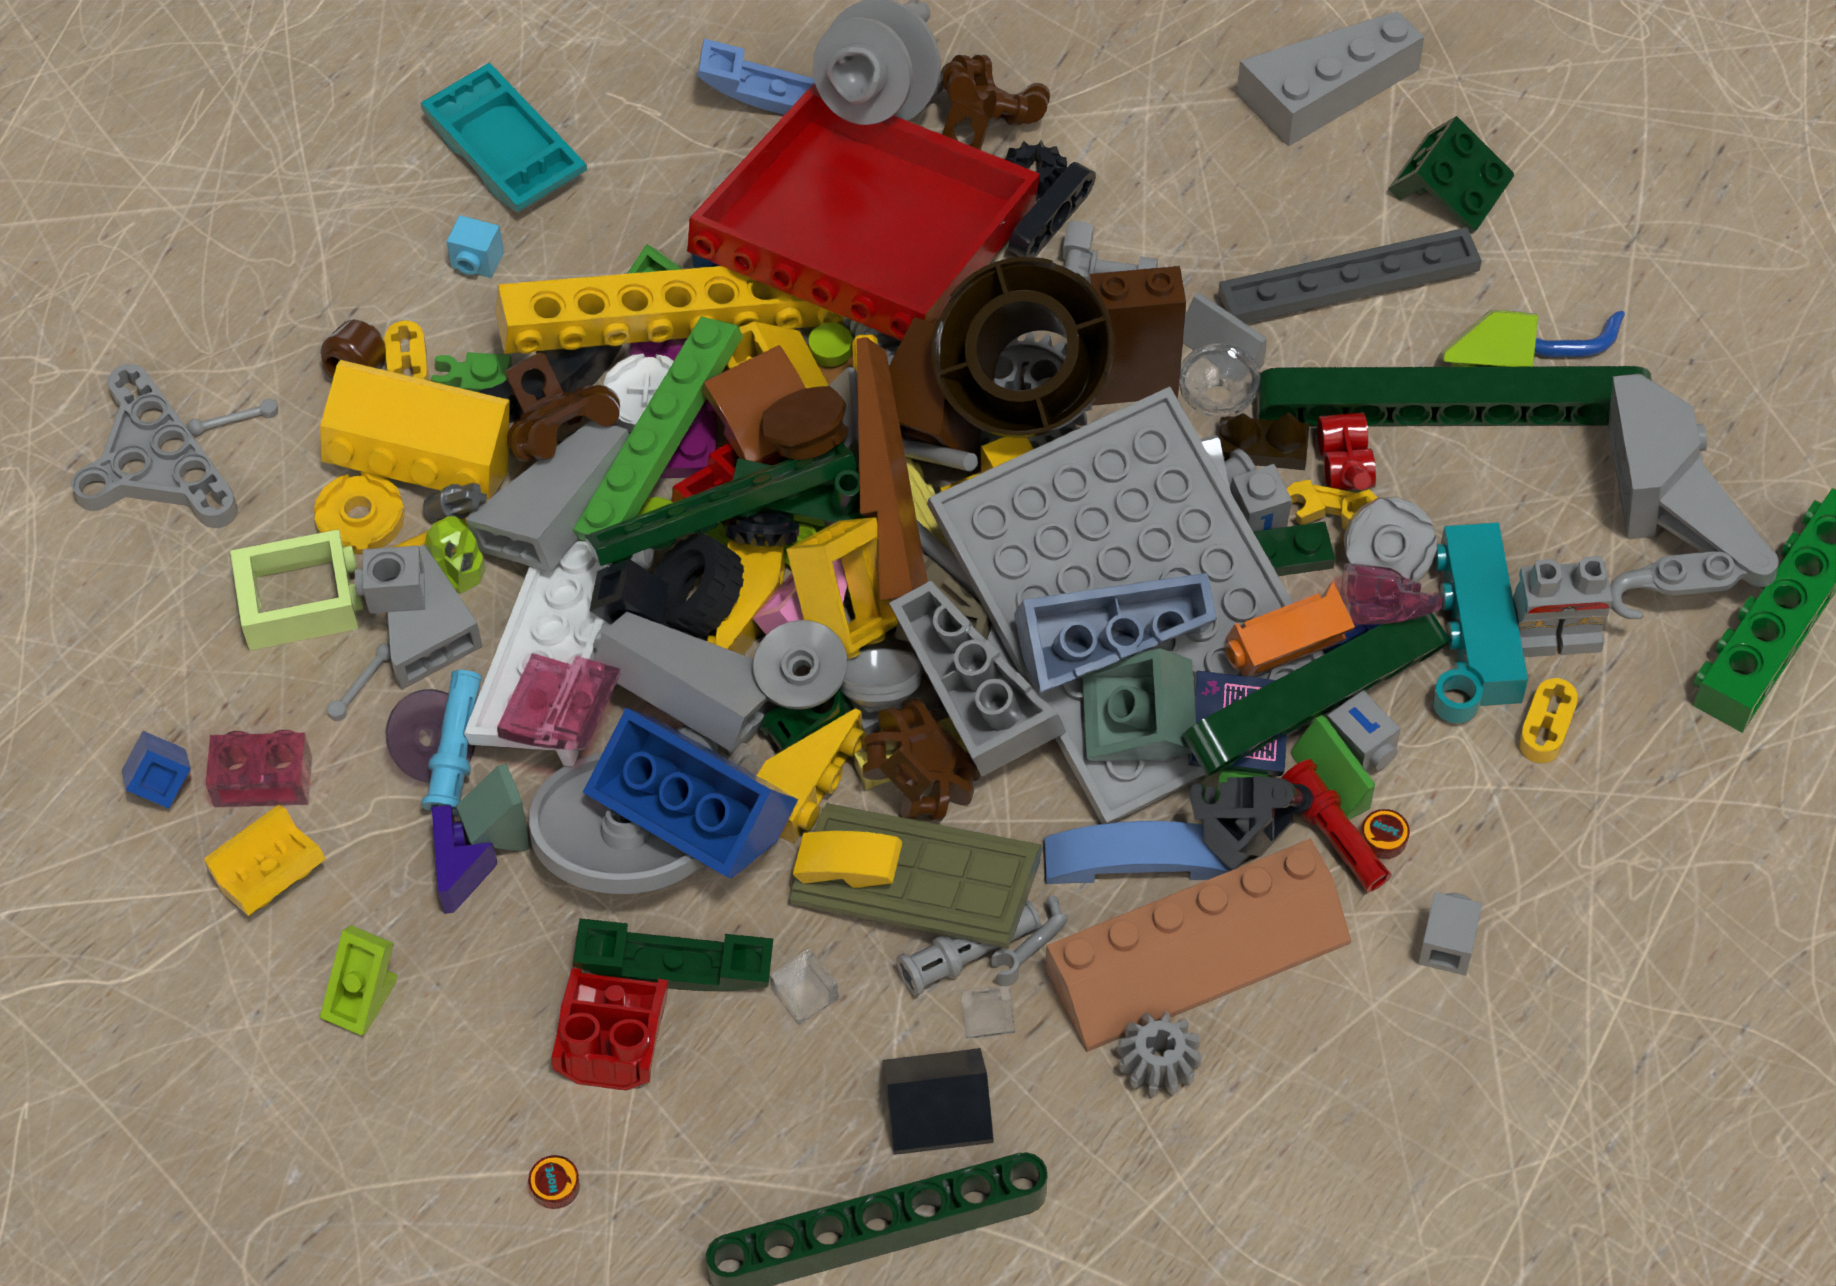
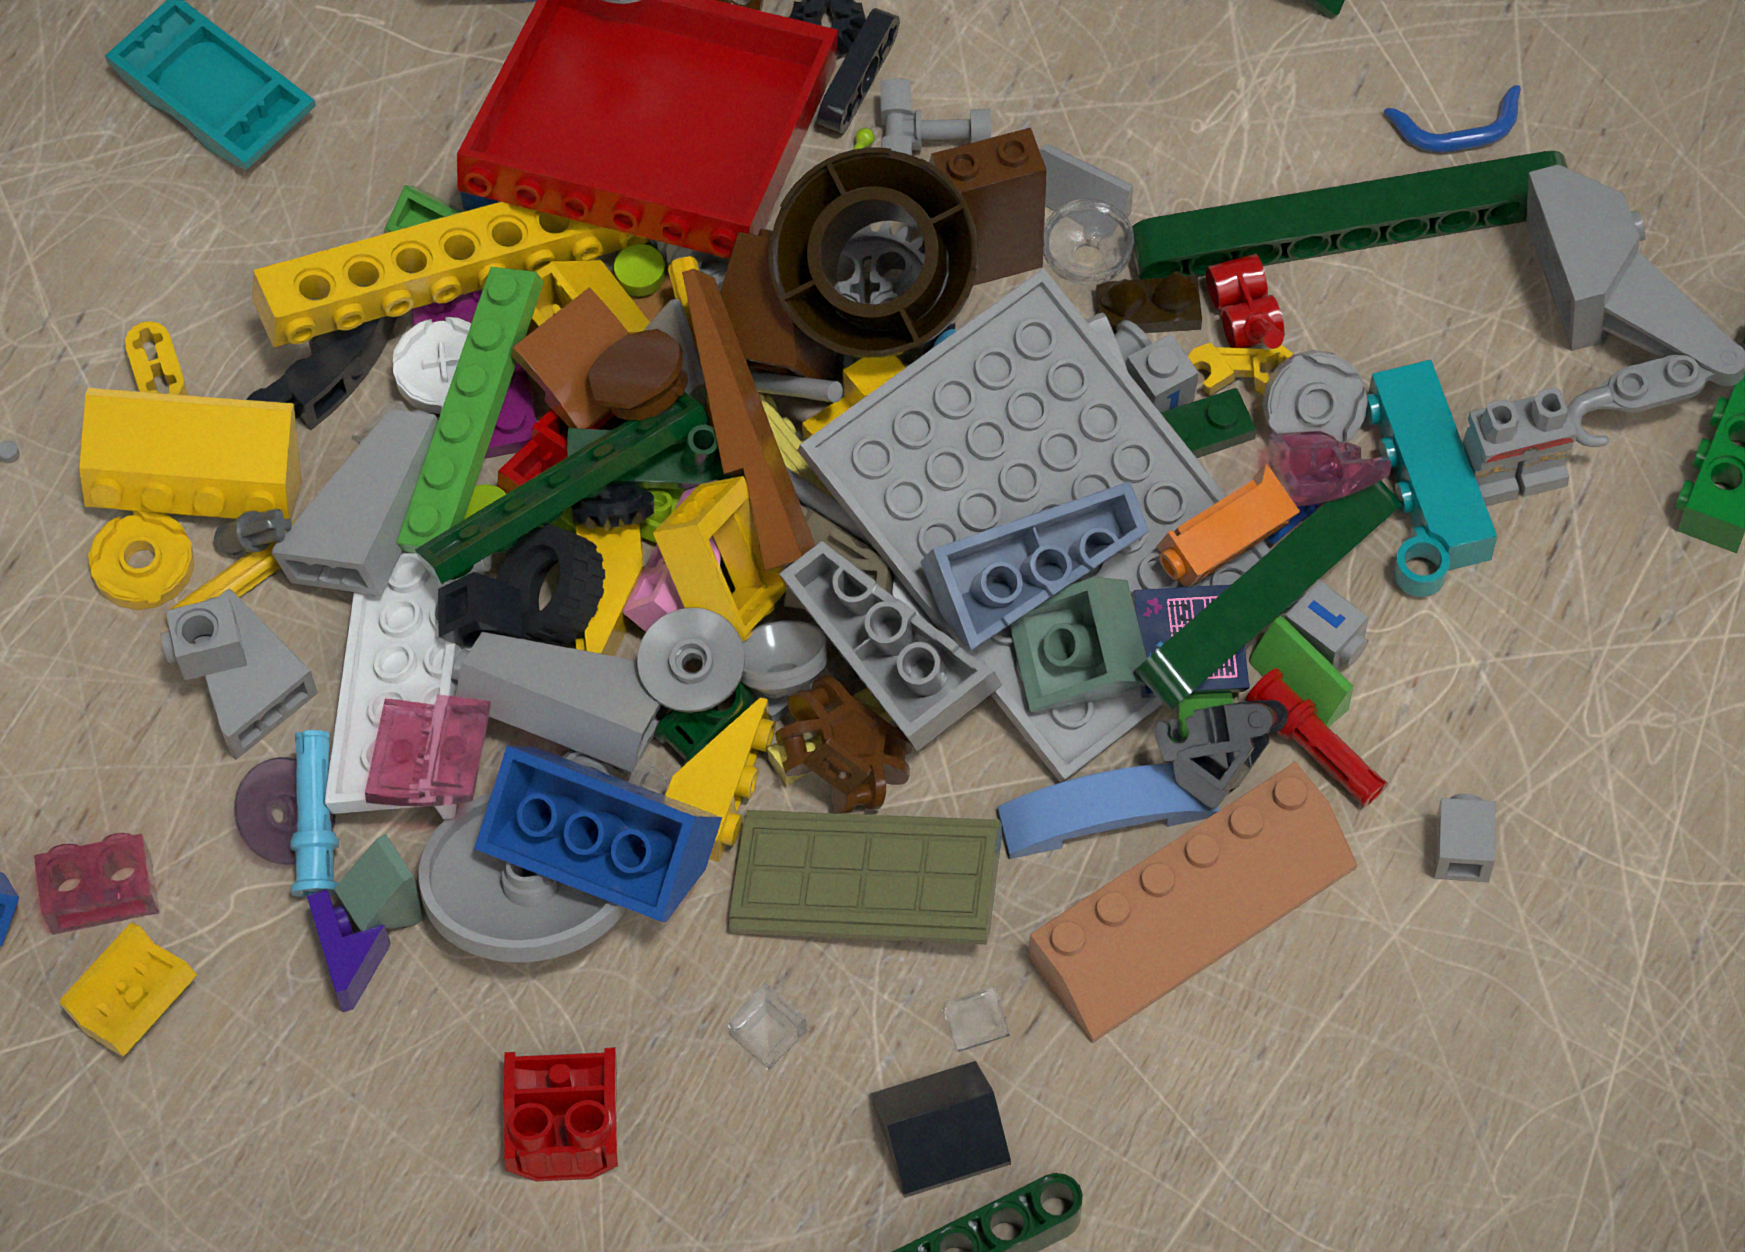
camera: 10 degrees left, 5 degrees up
(299, 621) = (107, 700): yellowish green window -> none
(337, 709) = (168, 795): light grey hinge -> none
(355, 343) = (92, 362): reddish brown head -> none
(358, 980) = (266, 1110): lime slope -> none
(456, 552) = (266, 590): lime rock -> none
(474, 374) = (240, 374): bright green plate -> none
(475, 246) = (206, 220): medium azure plate -> none
(537, 428) = (333, 416): reddish brown piece -> none
(686, 963) = (630, 1021): dark green slope -> none
(854, 856) = (788, 869): yellow slope -> none
(948, 959) = (916, 965): light grey pin -> none
(1030, 946) = (1008, 932): light grey piece -> none
(1161, 1035) = (1196, 1028): light grey gear -> none
(1350, 276) = (1208, 93): dark grey plate -> none
(1386, 833) = (1372, 736): clear red tile -> none
(1496, 340) = (1386, 144): lime slope -> none
(1557, 723) = (1514, 574): yellow beam -> none

